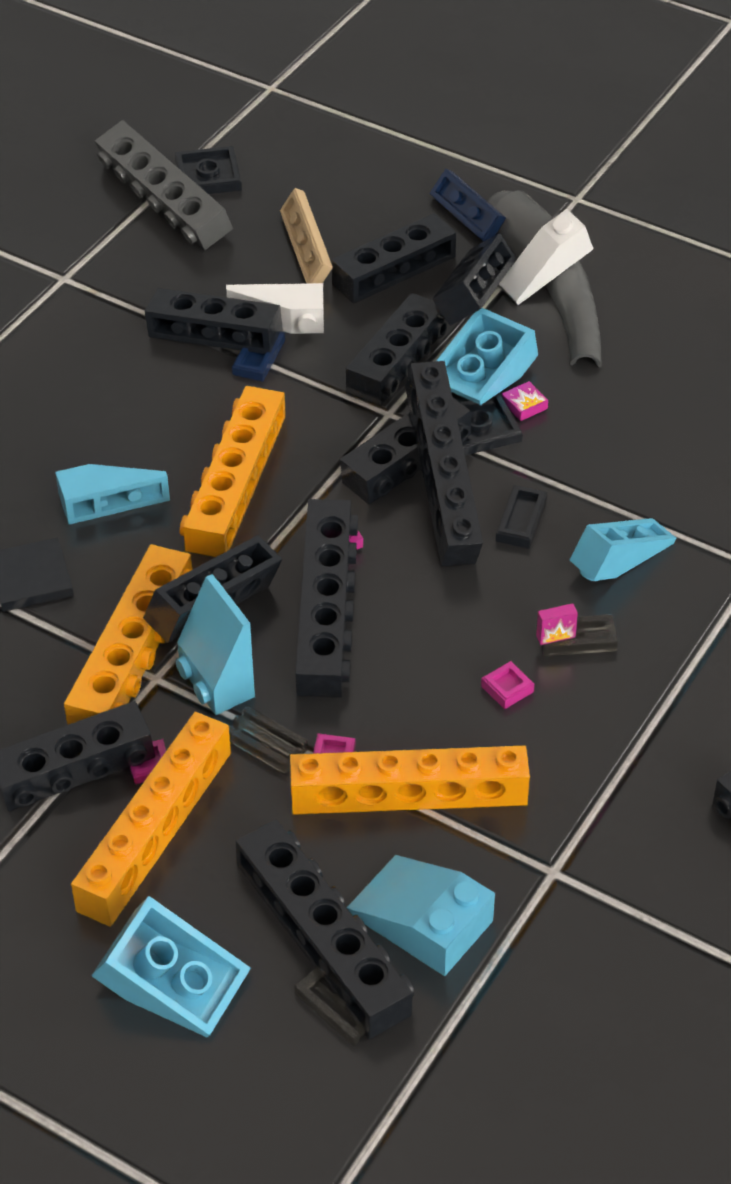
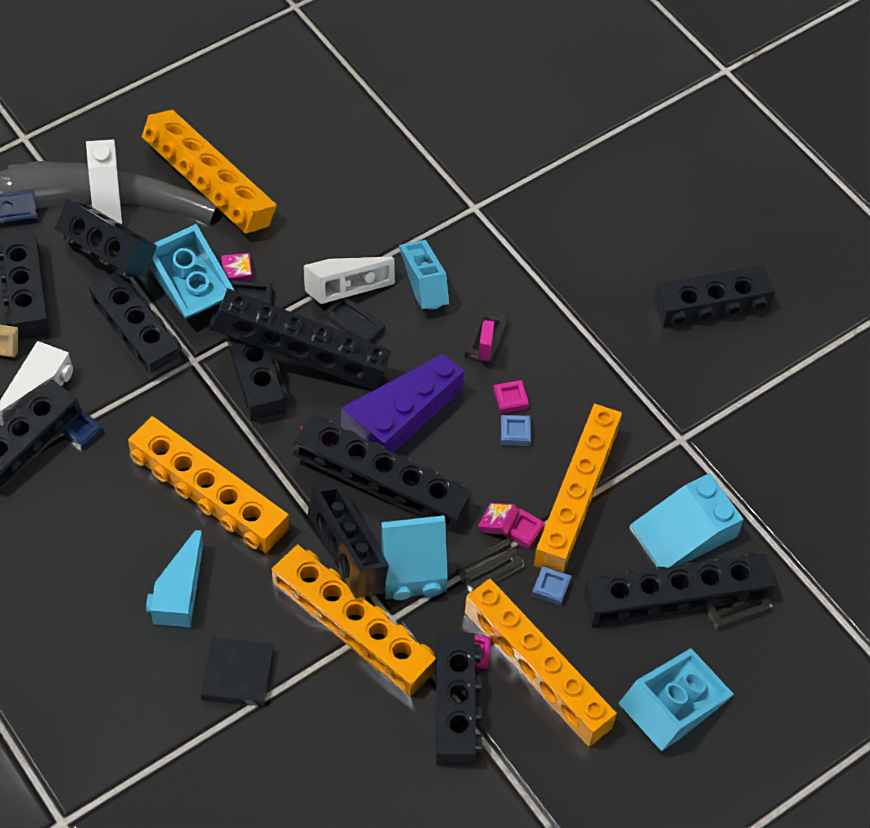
camera: 70 degrees left, 10 degrees up
(269, 804) = (551, 585): none -> medium blue tile
(328, 722) = (498, 518): none -> dark pink tile
(428, 588) = (405, 404): none -> dark purple wedge
(463, 704) = (515, 430): none -> medium blue tile
(566, 481) = (347, 276): none -> white slope
(625, 329) = (209, 171): none -> light orange brick

